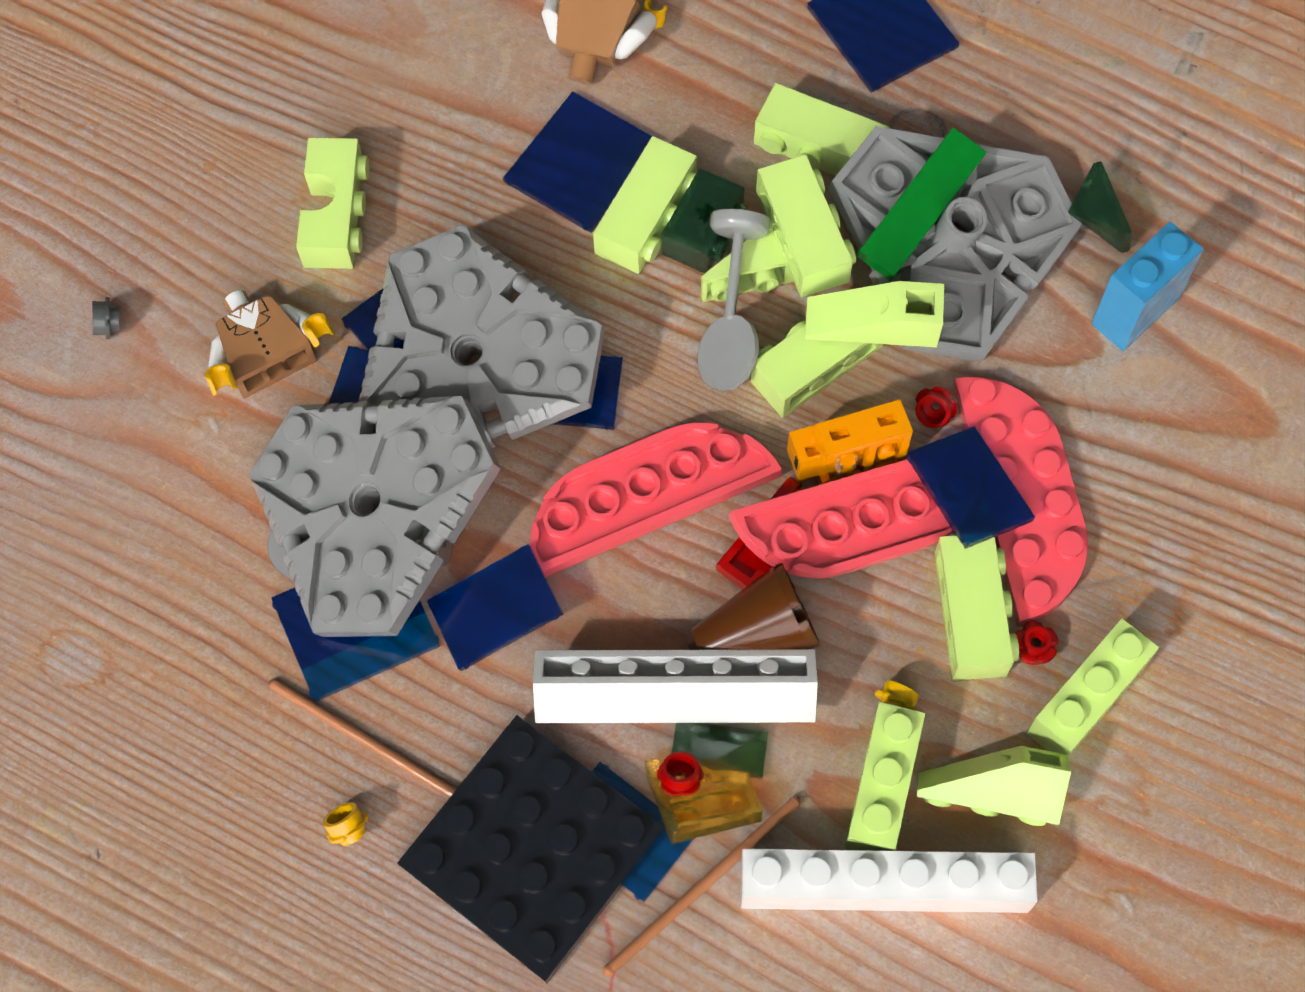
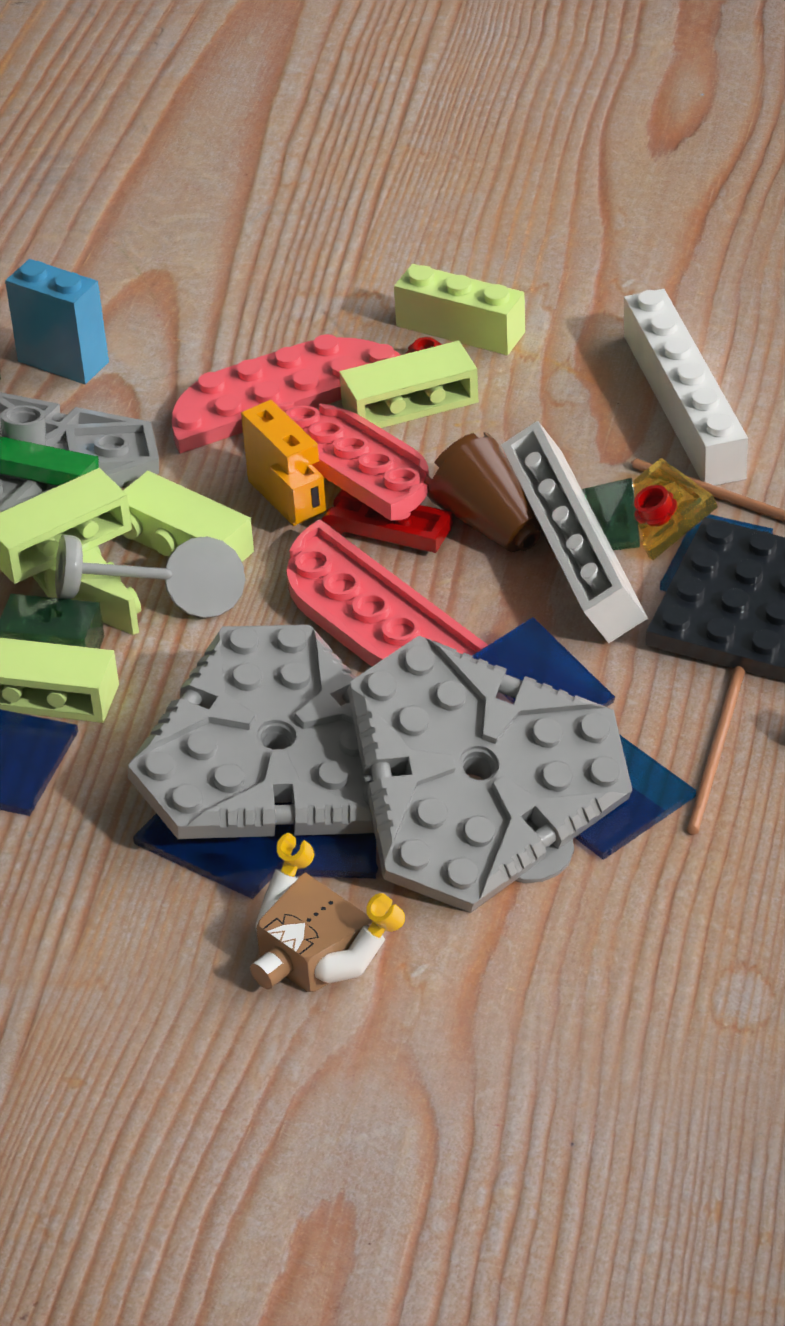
camera: 105 degrees left, 25 degrees down
(105, 318) = (327, 1103): dark grey plate -> none
(332, 233) = (140, 913): yellowish green arch -> none
(879, 314) = (147, 452): yellowish green slope -> none
(885, 779) = (598, 401): yellowish green brick -> none
(897, 695) = (515, 416): yellow plate -> none
(935, 417) = (214, 445): red plate -> none
(970, 487) = (305, 387): clear blue piece -> none
(1007, 782) = (567, 339): yellowish green slope -> none

